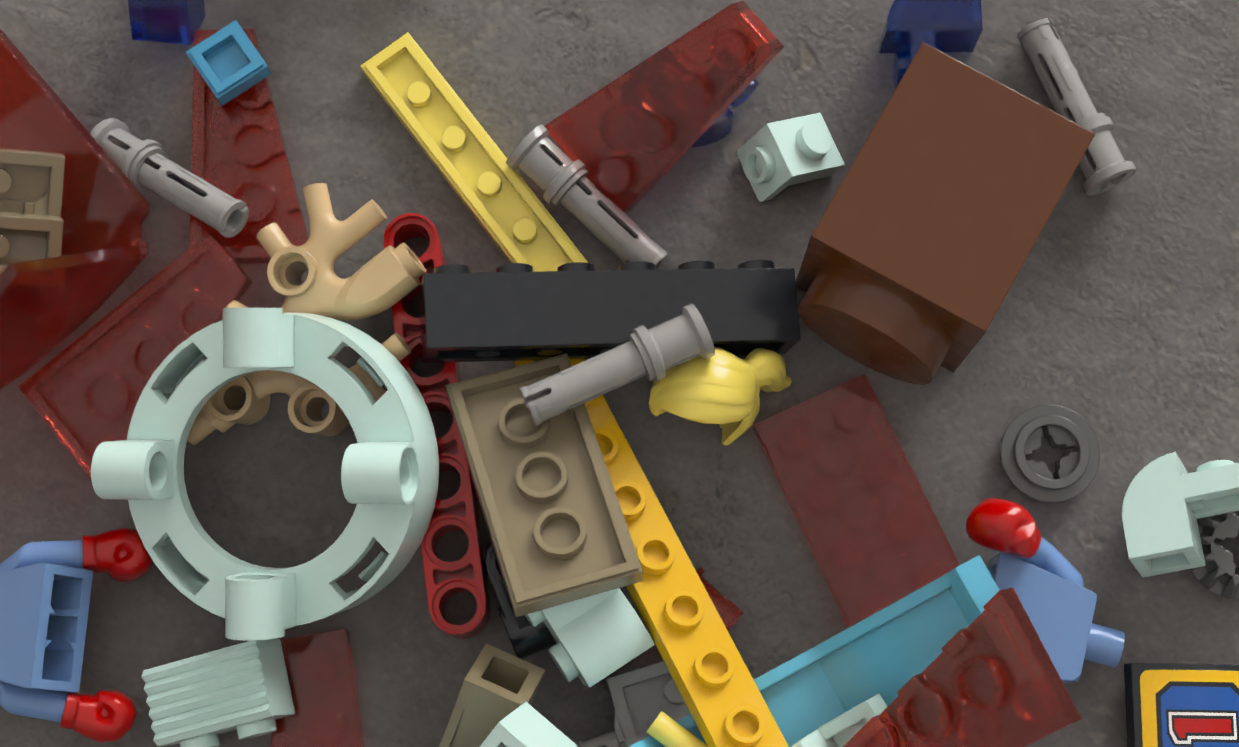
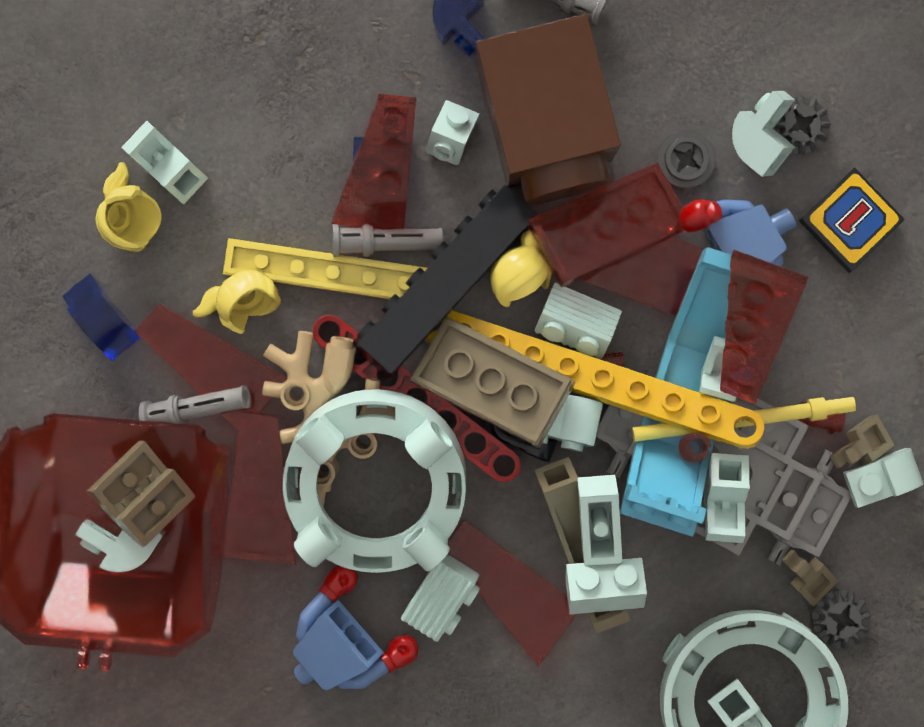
camera: 45 degrees left, 10 degrees up
(228, 62) = (167, 330): dark azure tile -> none
(349, 108) = (239, 297): none -> light yellow hair
(646, 354) = (484, 286): light grey pin -> none
(723, 517) = (578, 321): none -> light aqua brick
(875, 434) = (608, 224): none -> clear red plate

